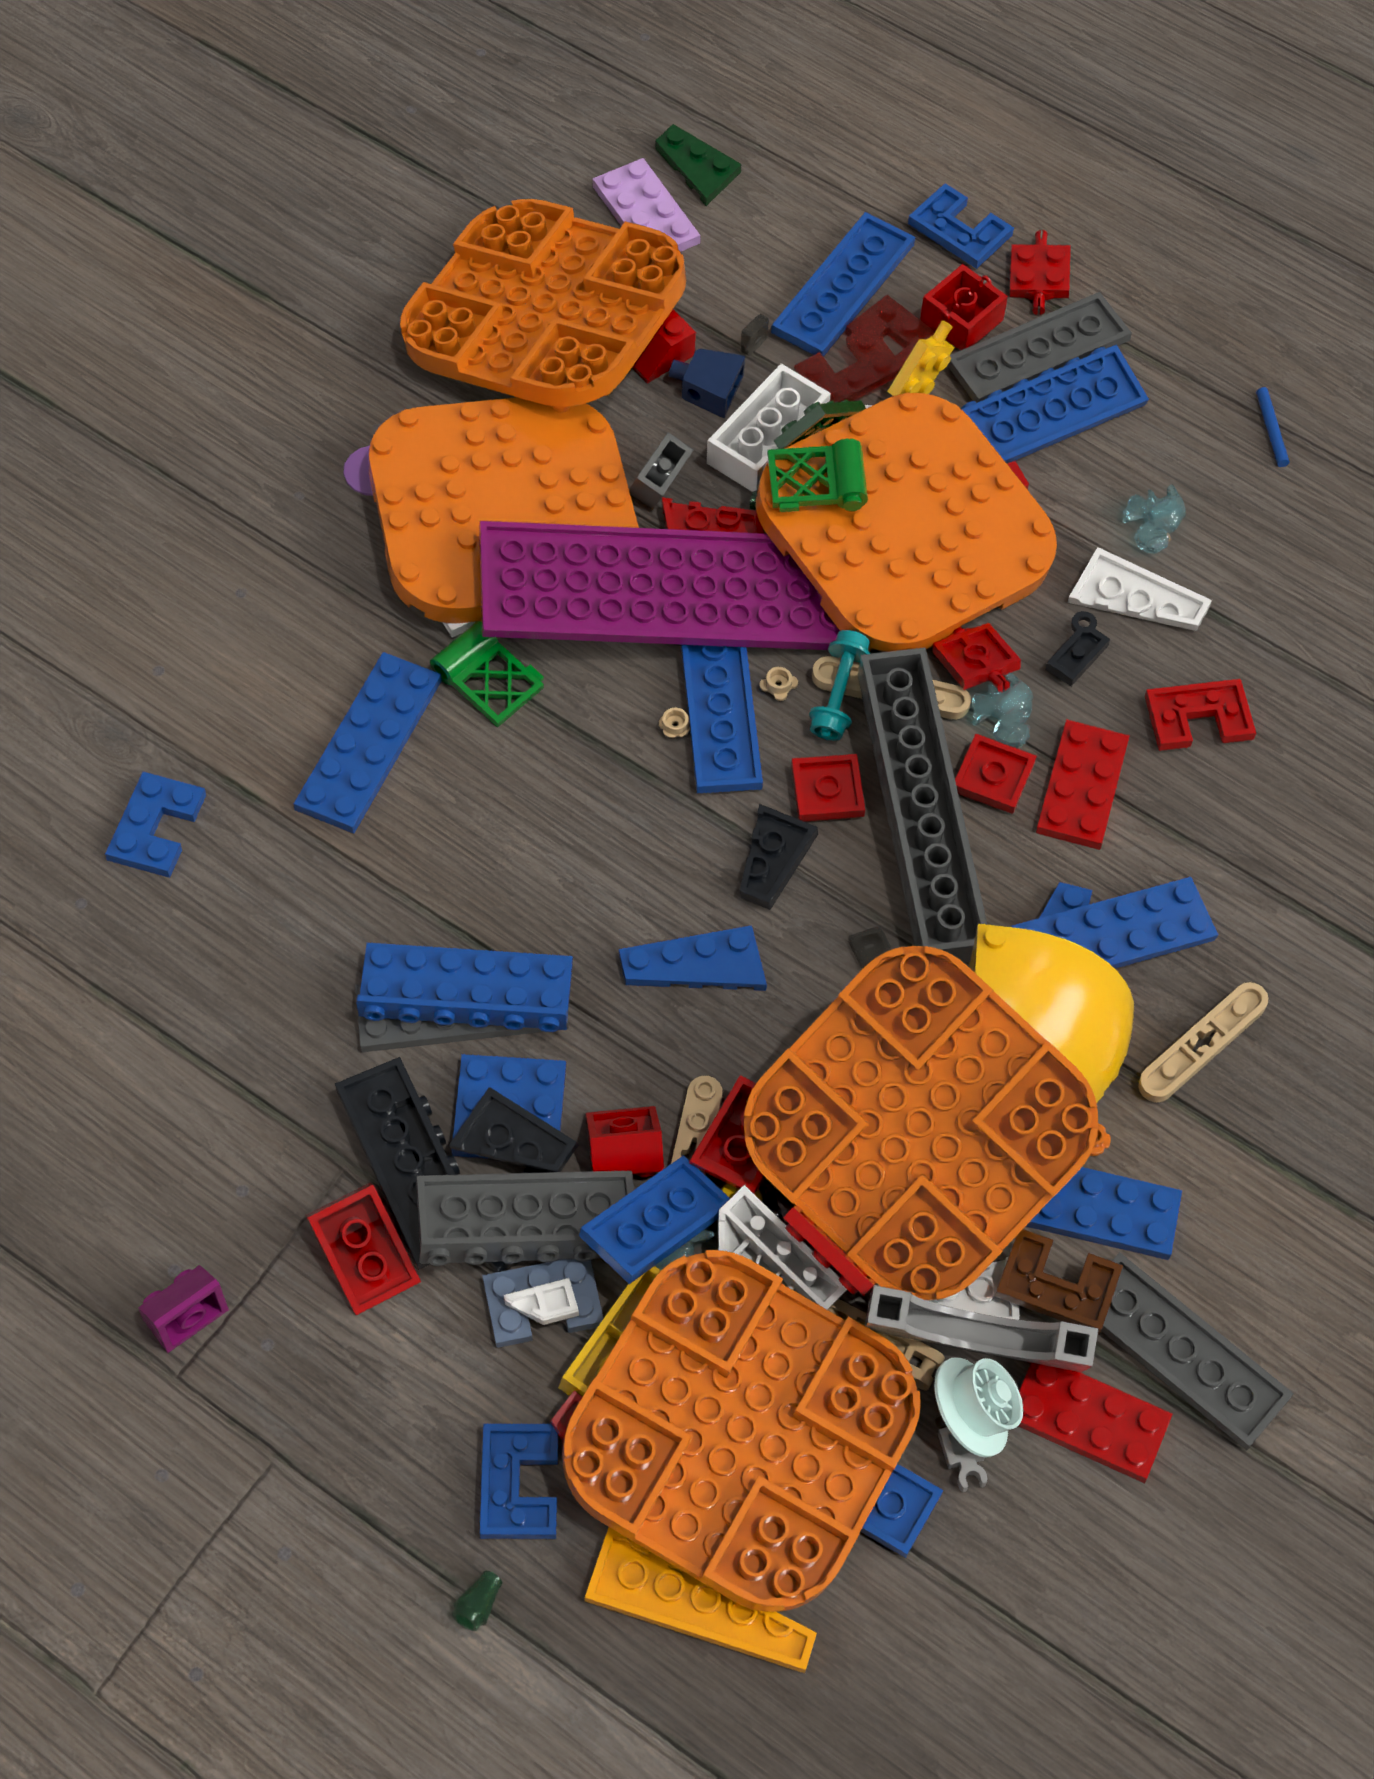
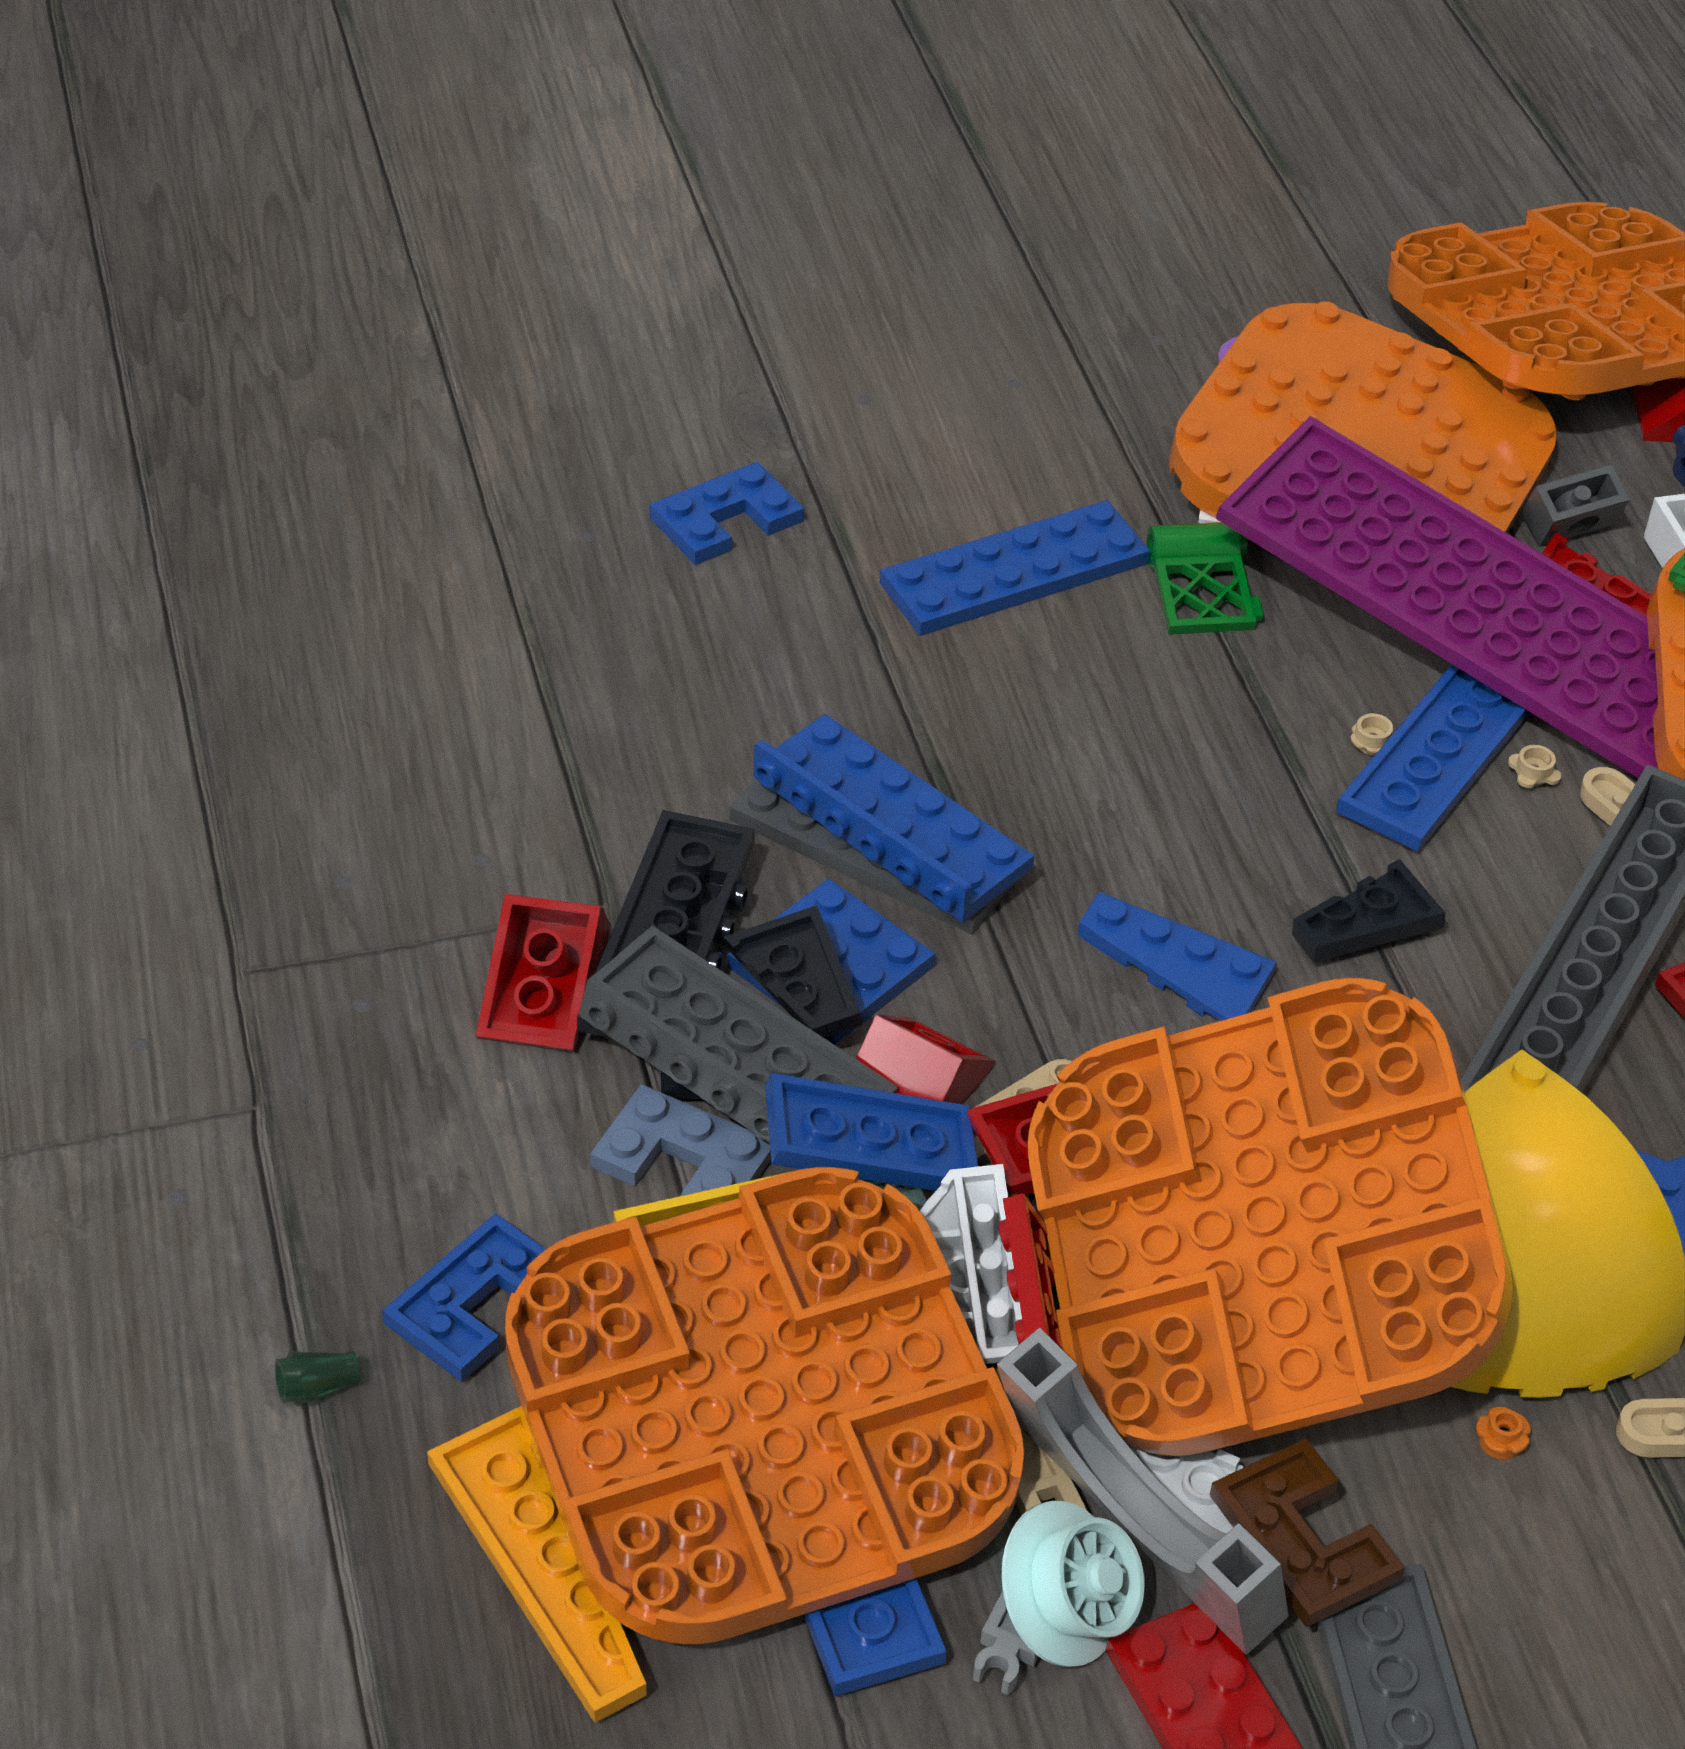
camera: 40 degrees right, 15 degrees down
(183, 1307) = (309, 909): magenta slope -> none
(545, 1302) = (678, 1145): white tile -> none
(828, 787) = (1498, 891): red plate -> none
(830, 721) = (1561, 830): teal piece -> none
(1113, 1213) = (1441, 1508): blue plate -> none

